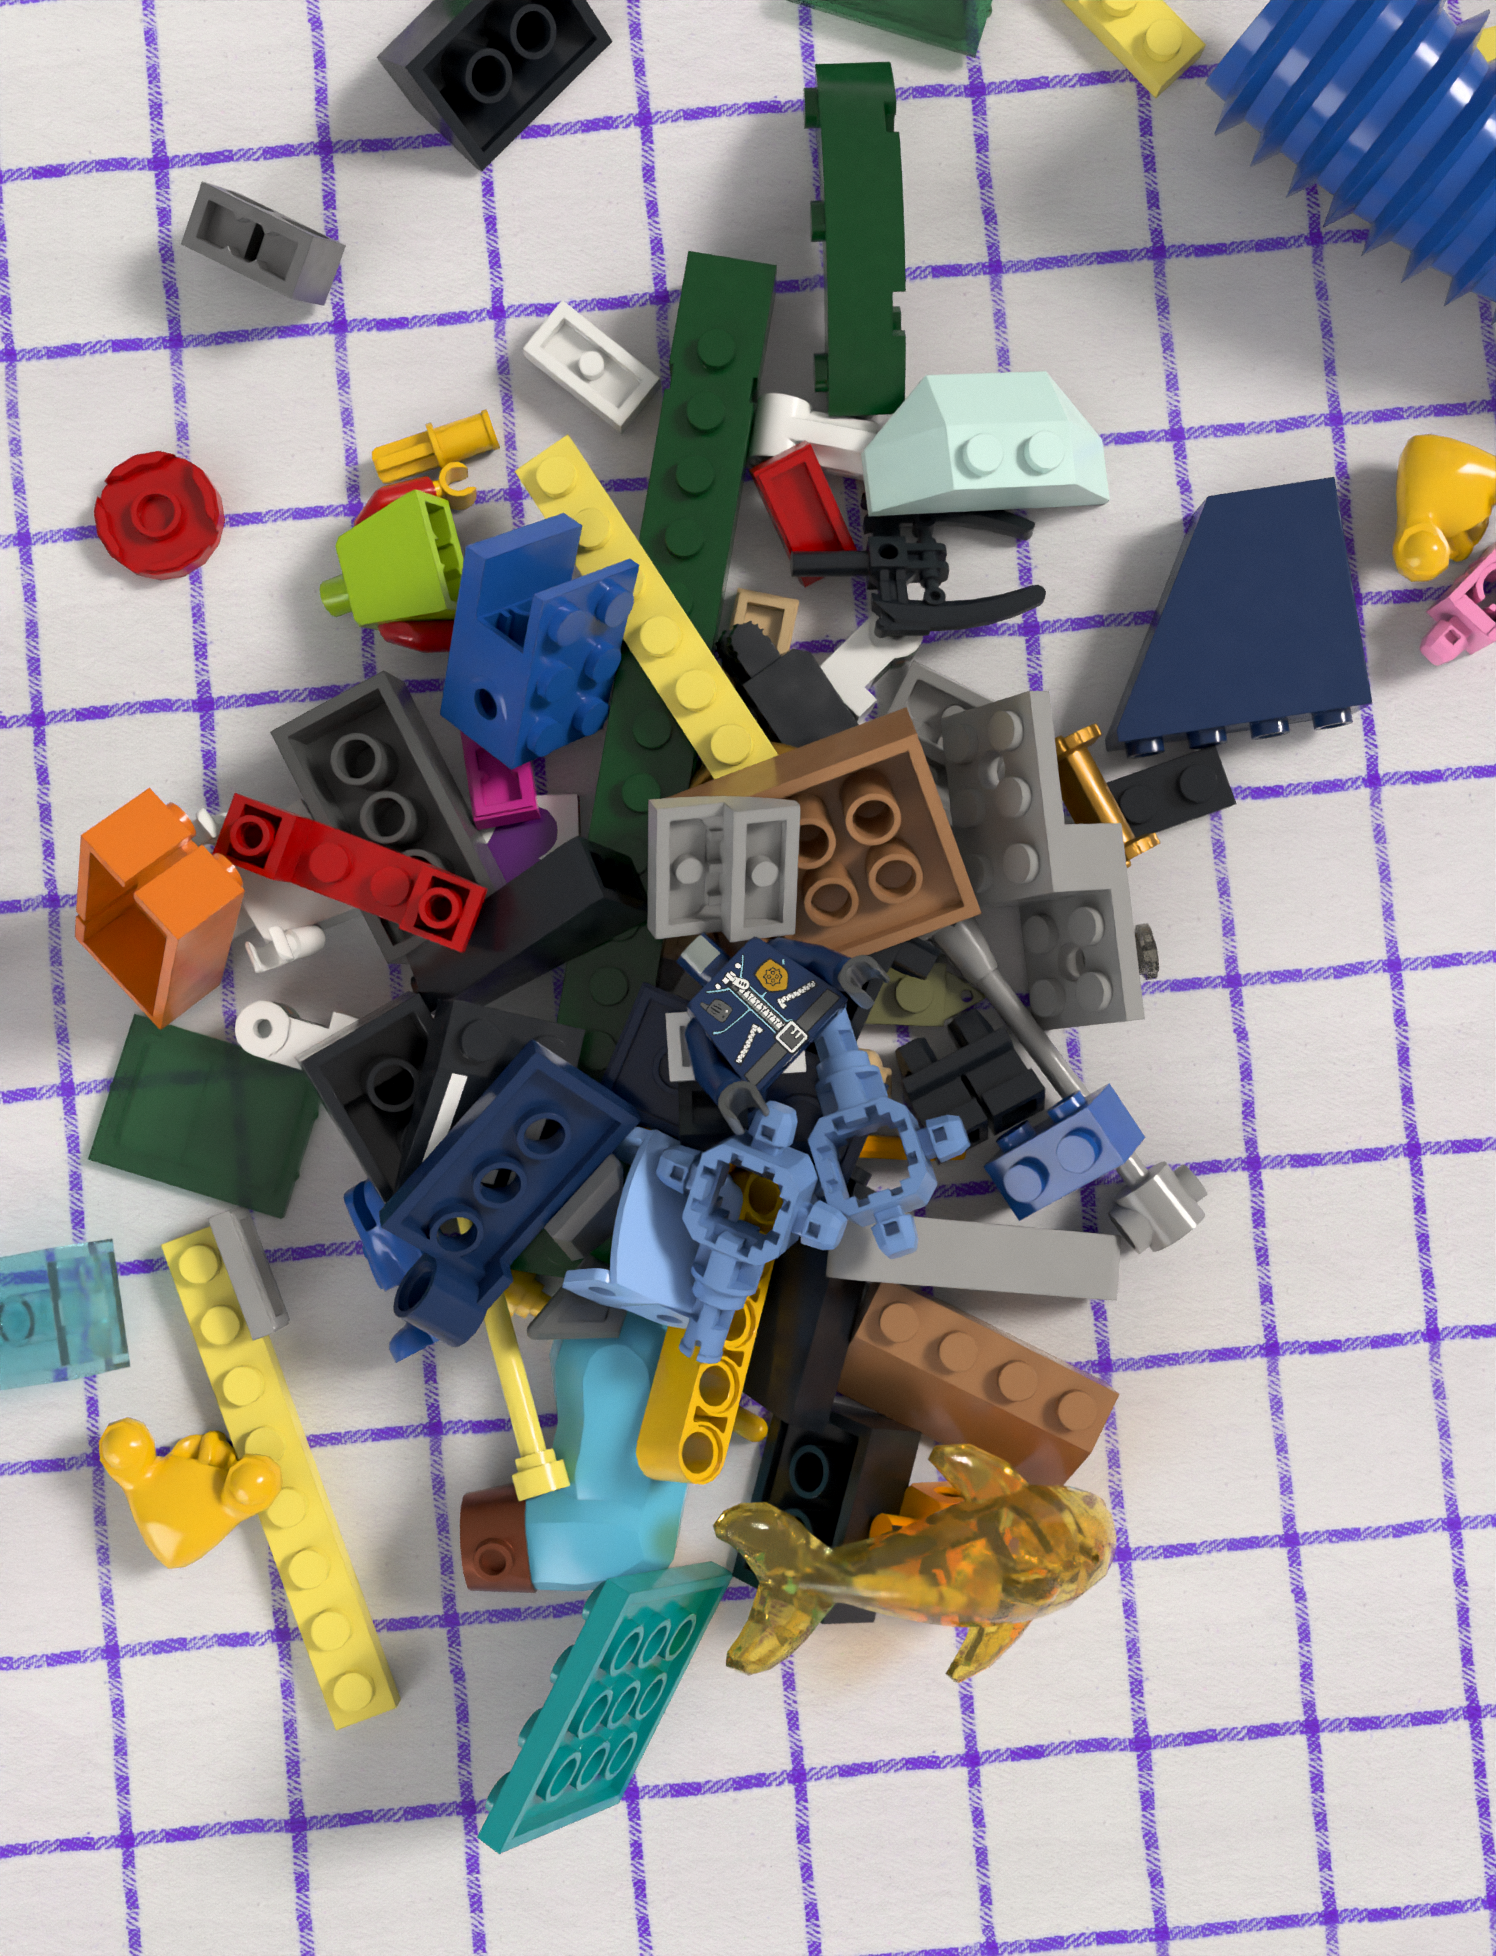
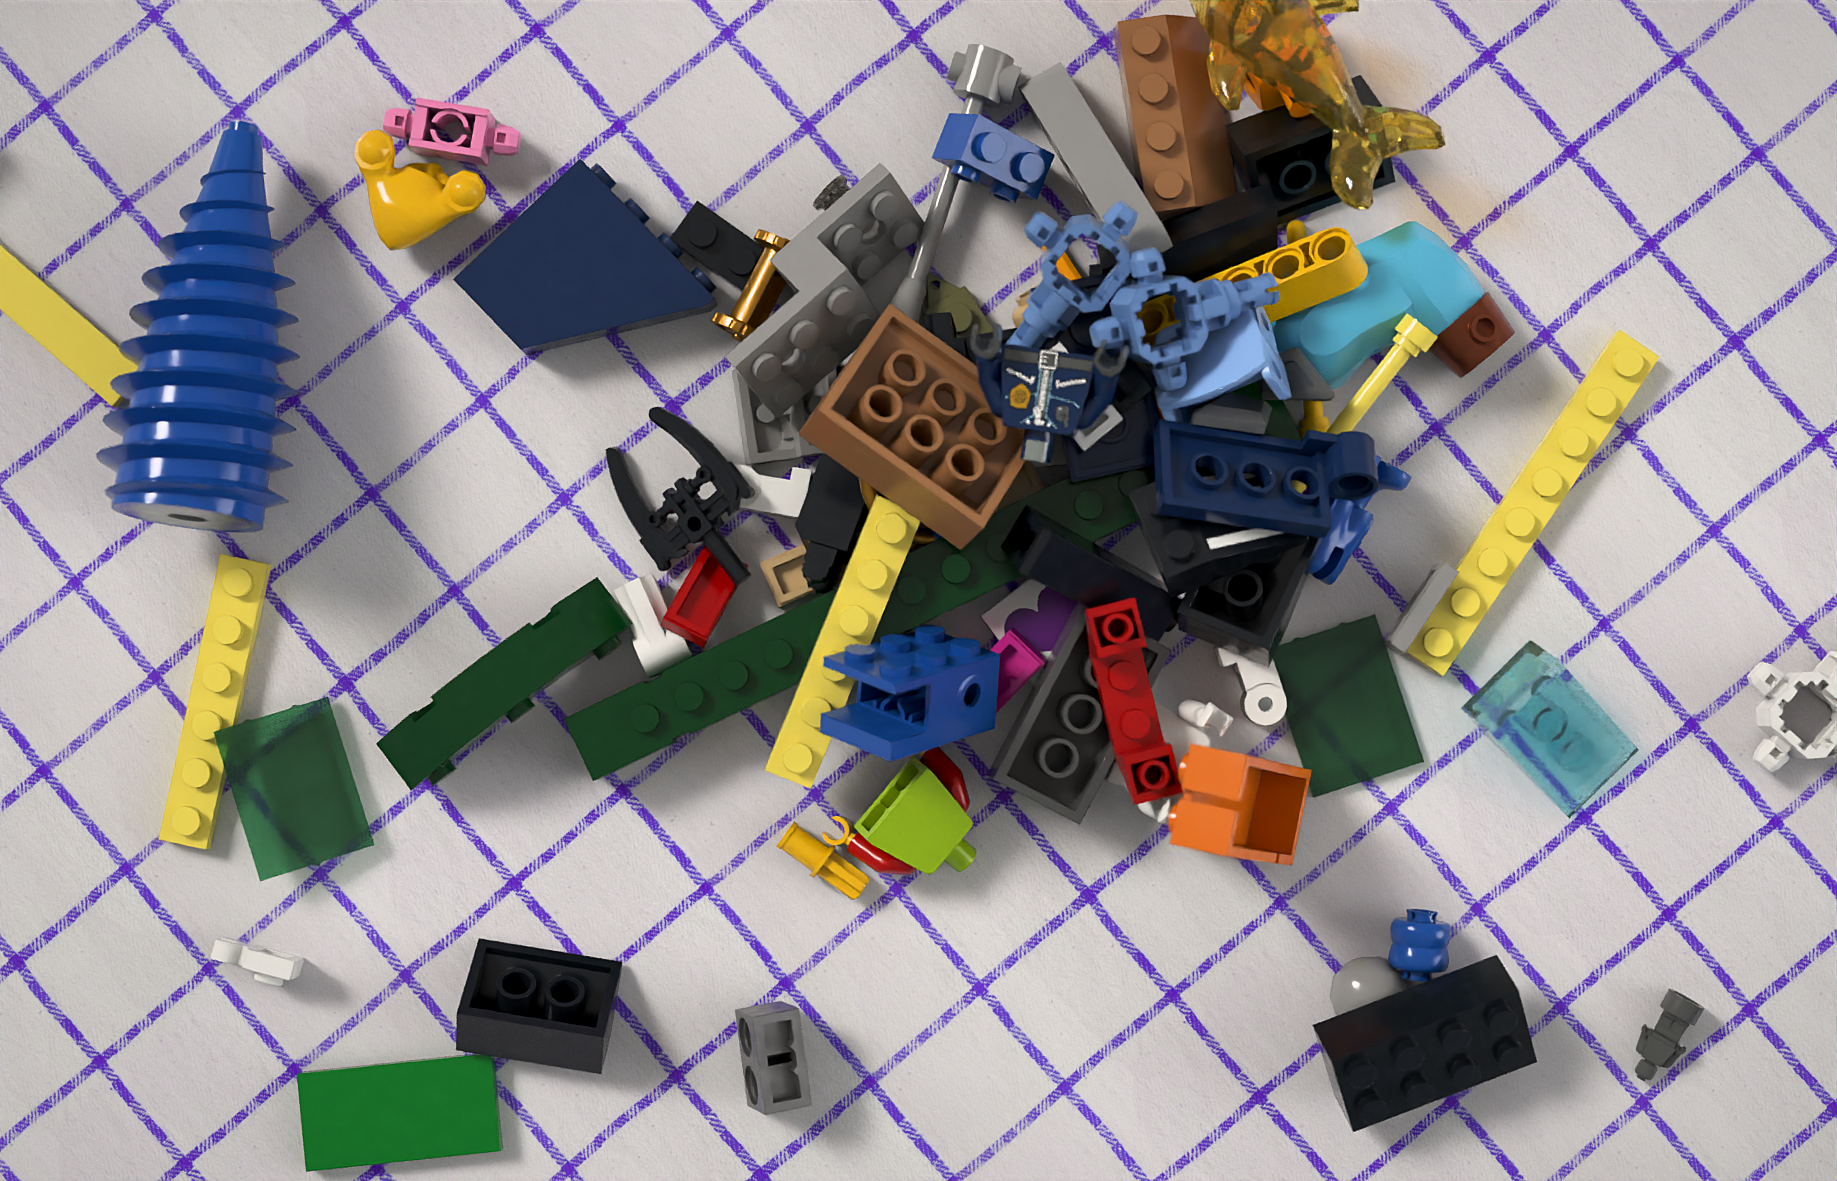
camera: 120 degrees left, 0 degrees up
(159, 515) = (989, 1008): red tile -> none
(189, 1495) = (1579, 545): yellow head -> none
(592, 367) = (702, 798): white plate -> none
(604, 1701) = (1516, 201): teal plate -> none
(722, 866) = (975, 472): light grey slope -> none
(978, 1082) = (973, 242): black hips -> none
(984, 448) = (584, 511): light aqua wedge -> none

